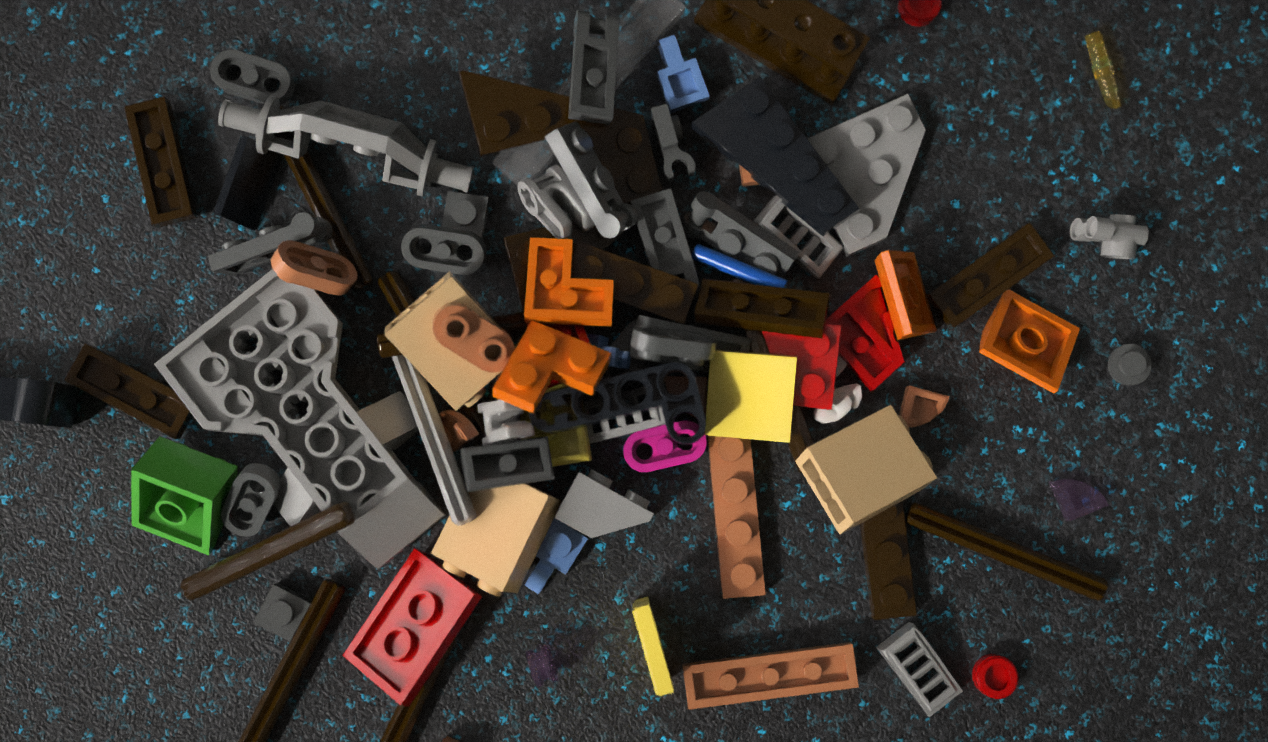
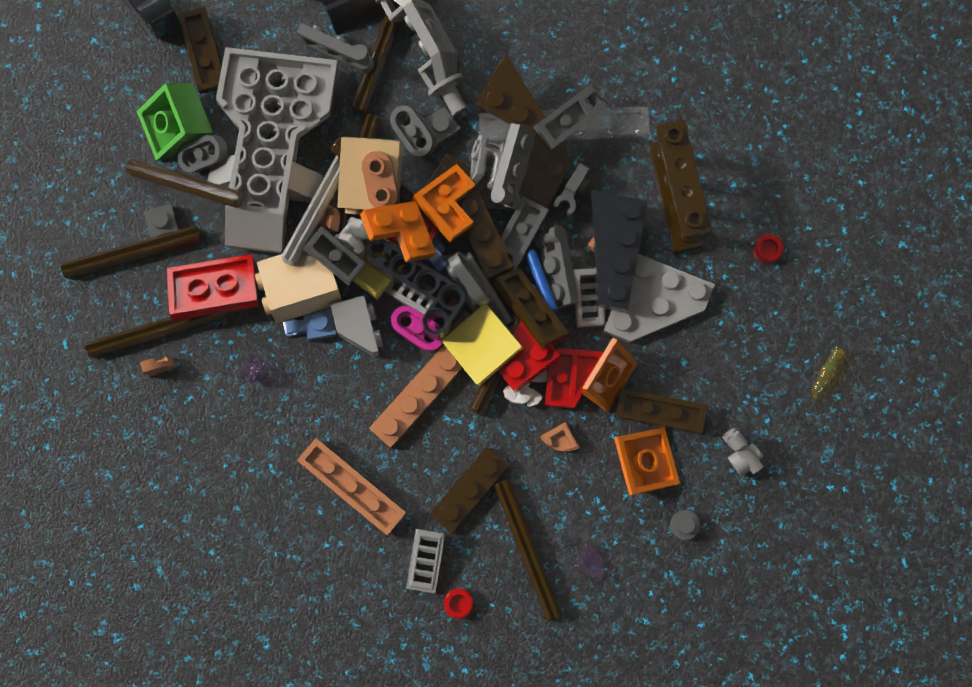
camera: 45 degrees right, 5 degrees down
(313, 268) = (343, 77): nougat plate -> none
(652, 646) = (312, 409): light yellow tile -> none
(681, 79) = (610, 166): medium blue plate -> none
(865, 468) = (500, 435): tan brick -> none

